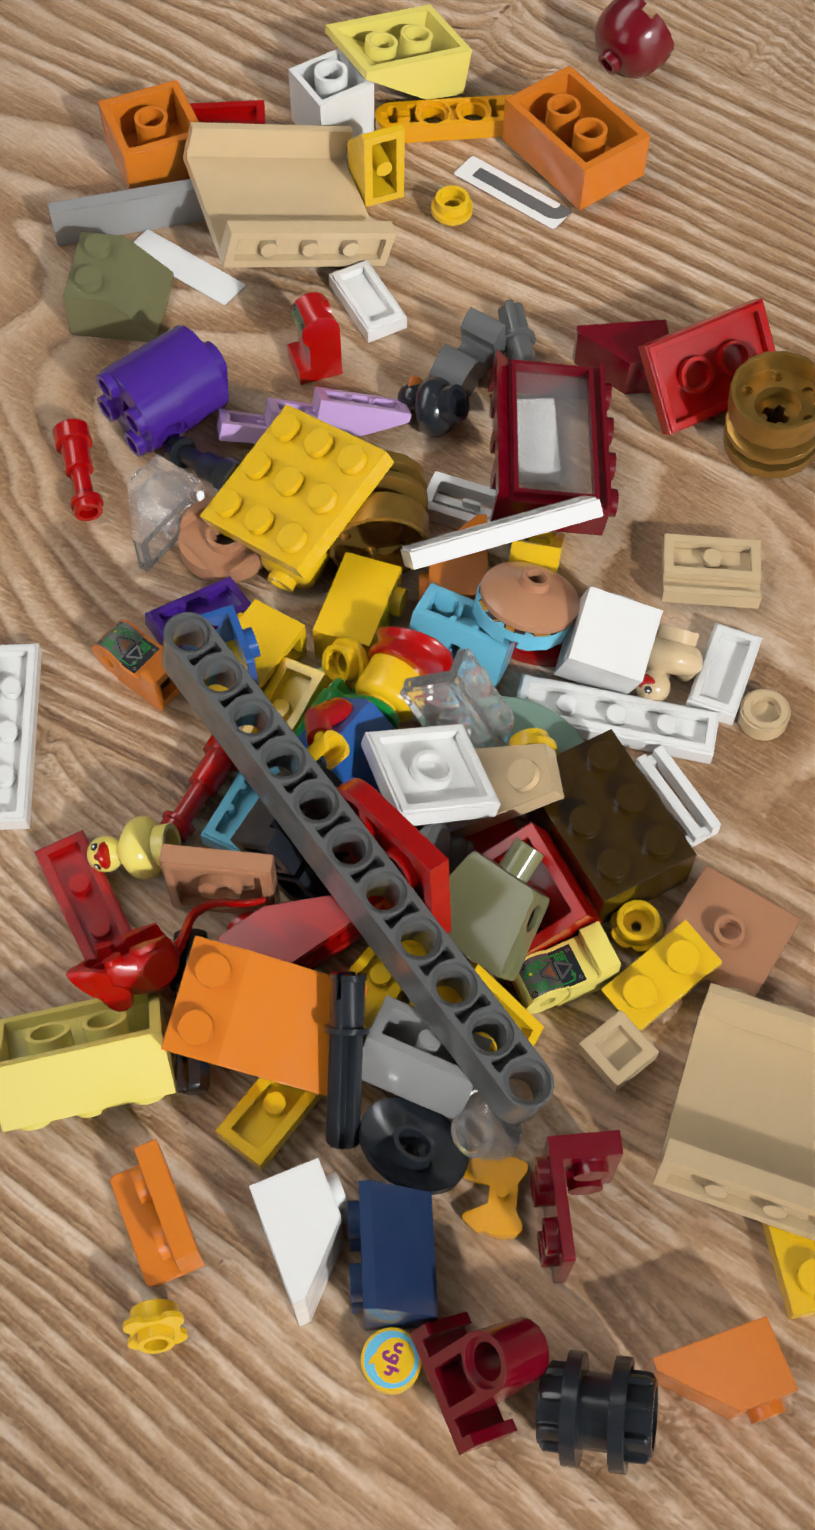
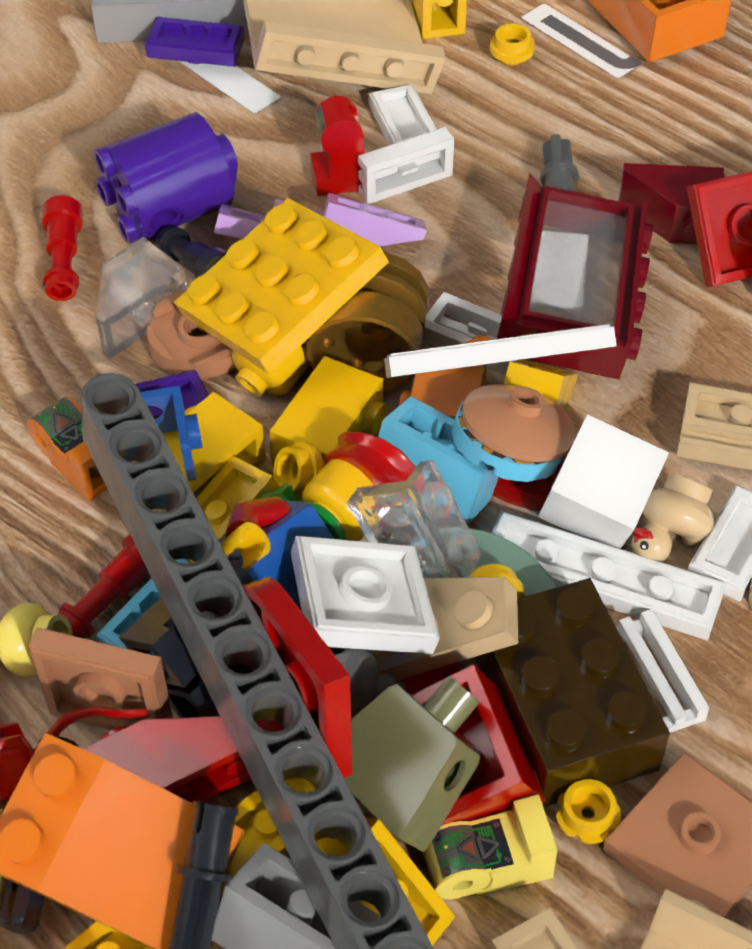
camera: 10 degrees right, 10 degrees down
(116, 289) = (141, 81): olive slope -> none
(161, 235) = (195, 41): none -> dark purple plate
(378, 347) = (405, 166): none -> white tile
(436, 404) = (456, 225): black animal -> none
(475, 354) = (490, 197): dark grey leg -> none
(662, 976) = (609, 875): yellow plate -> none

